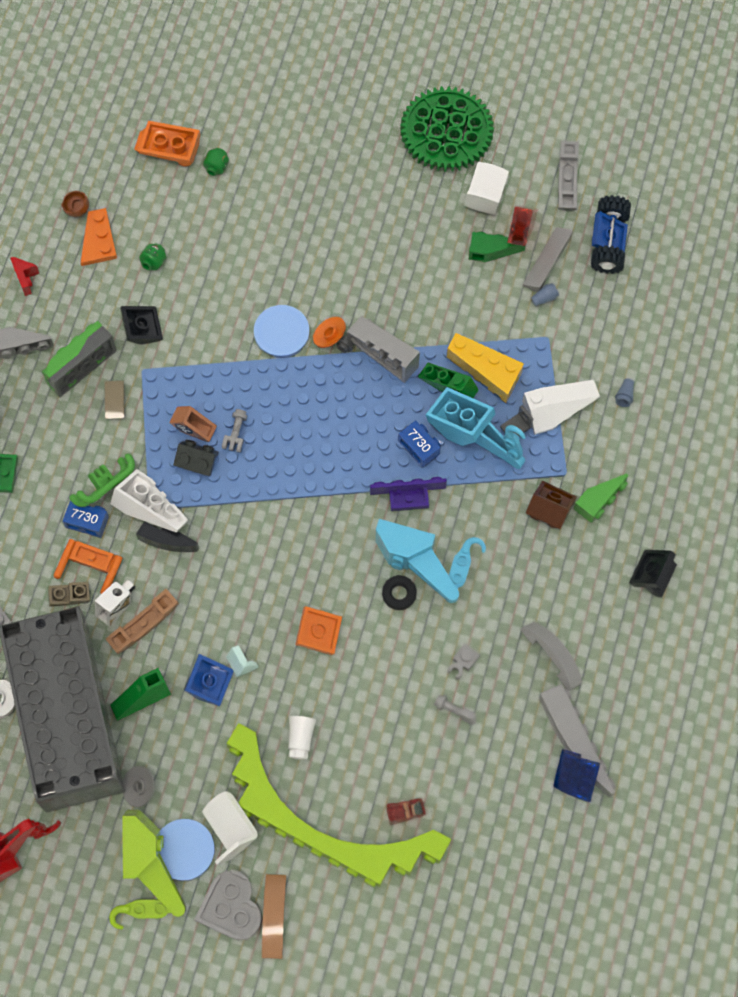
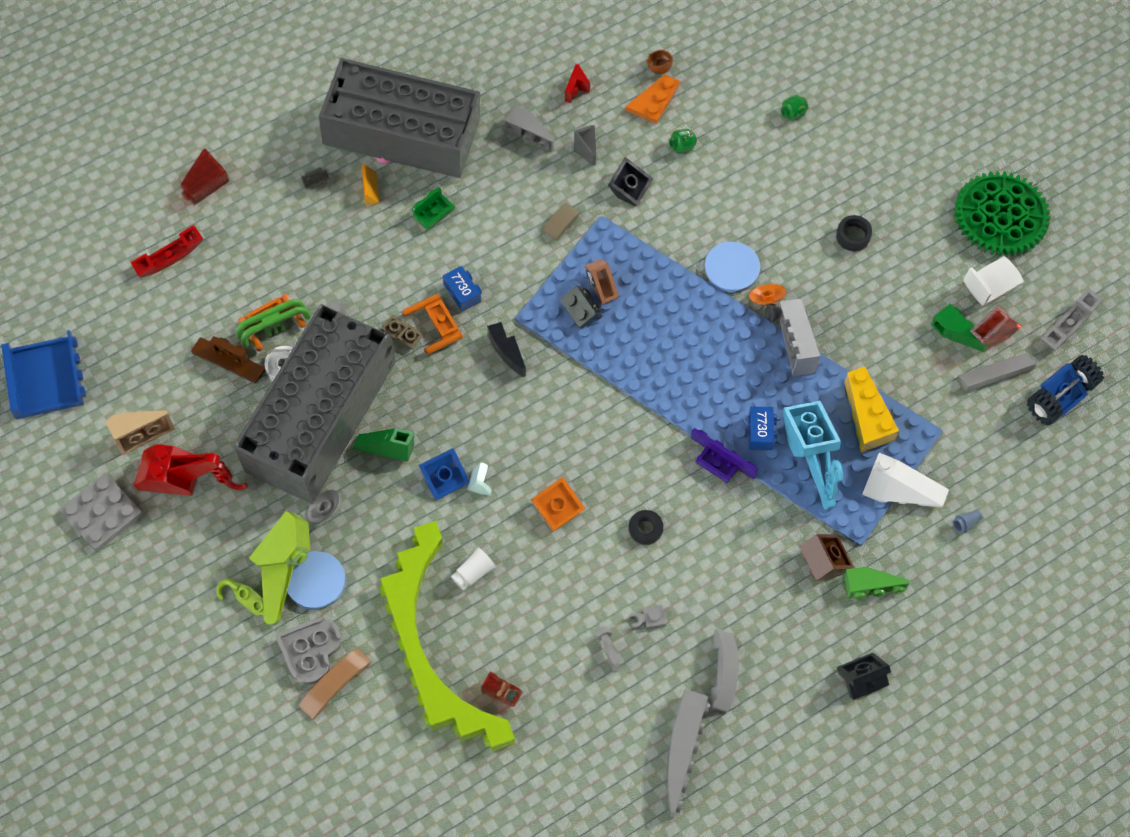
camera: 40 degrees right, 5 degrees down
(77, 318) = (585, 143): none -> dark grey slope
(79, 358) = (560, 171): dark grey piece -> none
(104, 481) = (496, 271): bright green piece -> none
(113, 602) = (426, 362): white torso -> none
(141, 499) = (515, 307): white wedge -> none
(143, 623) = (434, 395): medium nougat slope -> none
(169, 142) = (771, 69): orange slope -> none
(230, 825) = (362, 589): white piece -> none
(239, 415) = (641, 302): light grey hinge -> none
(350, 218) = (853, 245): none -> black tyre
(413, 550) = (685, 505): medium azure slope -> none
(441, 378) = (833, 405): green slope -> none
(520, 420) = (855, 475): dark grey bracket -> none
(545, 294) = (968, 396): sand blue cone -> none
(576, 775) = (656, 775): clear blue slope -> none

